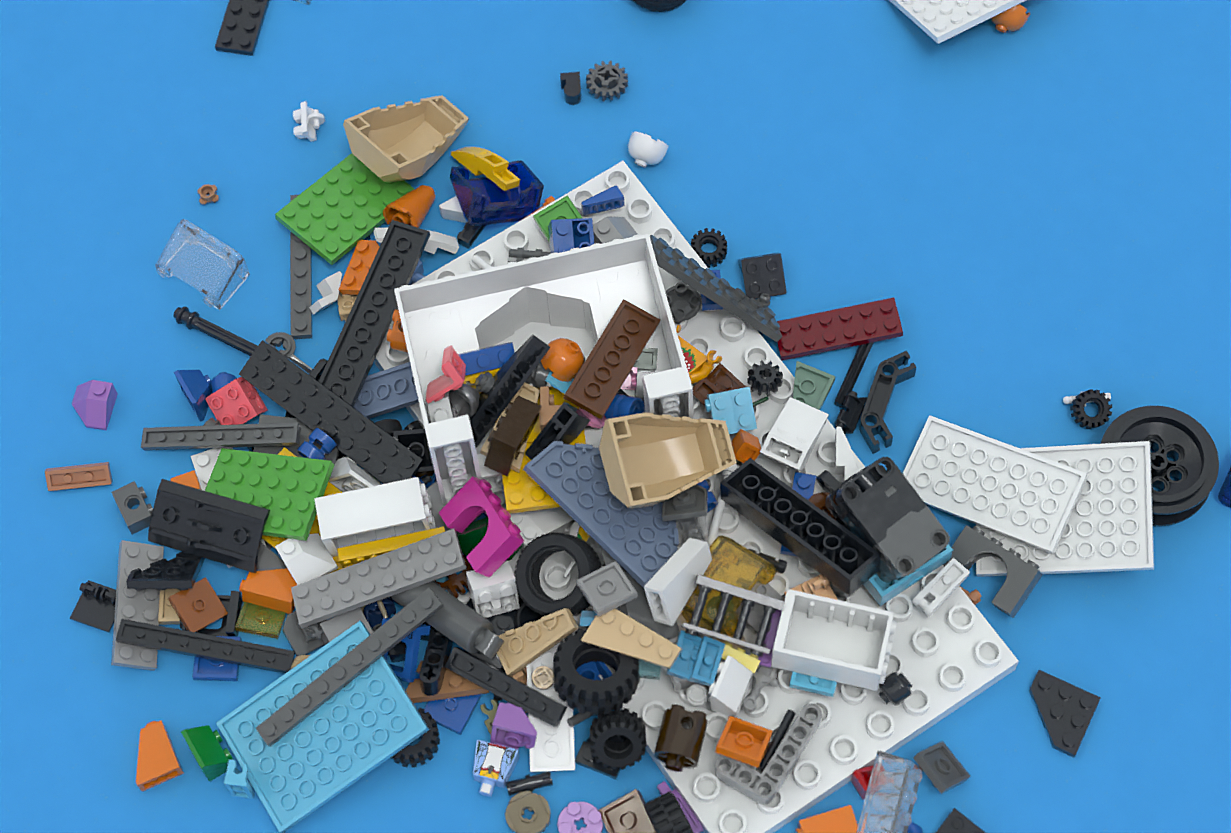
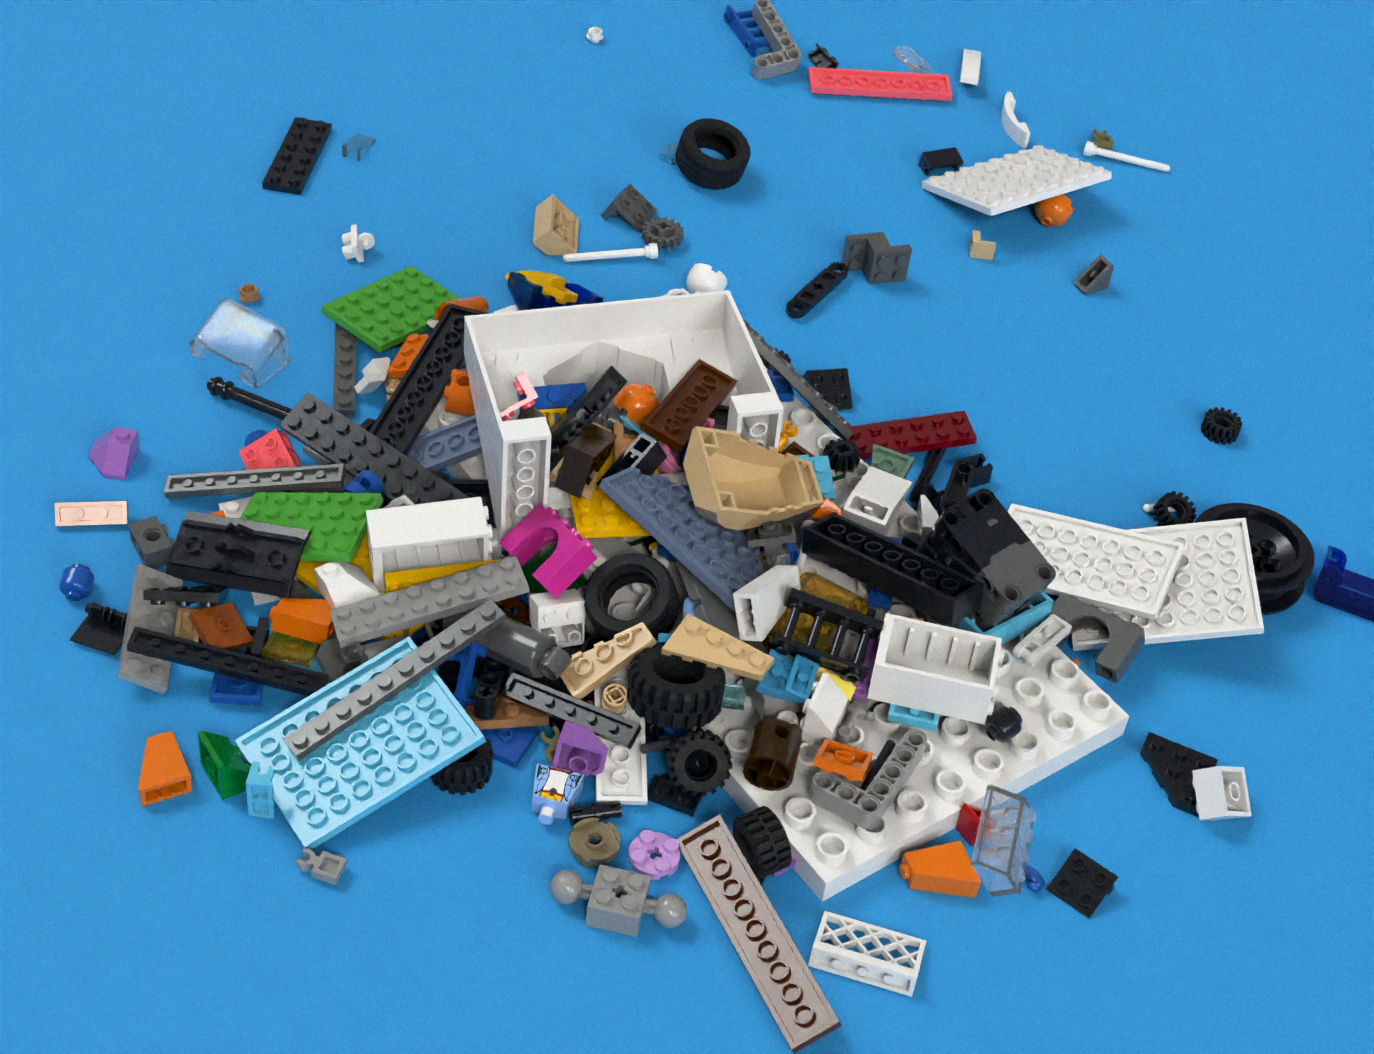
camera: 10 degrees left, 20 degrees down
(70, 557) = (76, 582): none -> blue head
(196, 389) = (225, 444): blue slope -> none
(406, 138) = (457, 256): tan windscreen -> none
(484, 382) = (555, 414): dark grey plate -> none
(501, 84) = (555, 228): none -> tan slope
(572, 88) = (627, 234): black leg -> none
(576, 49) = (631, 206): none -> dark grey bracket
(594, 106) = (648, 251): none -> white piece
(607, 588) = (690, 600): light grey plate -> none
(750, 152) = (817, 290): none -> black piece
(819, 101) = (876, 257): none -> dark grey bracket
(930, 72) = (979, 248): none -> tan panel
(941, 767) = (1060, 816): dark grey plate -> none
(1043, 103) = (1095, 276): none -> dark grey slope
(1097, 741) = (1221, 793): none -> white slope
(1152, 301) = (1221, 425): none -> black tyre

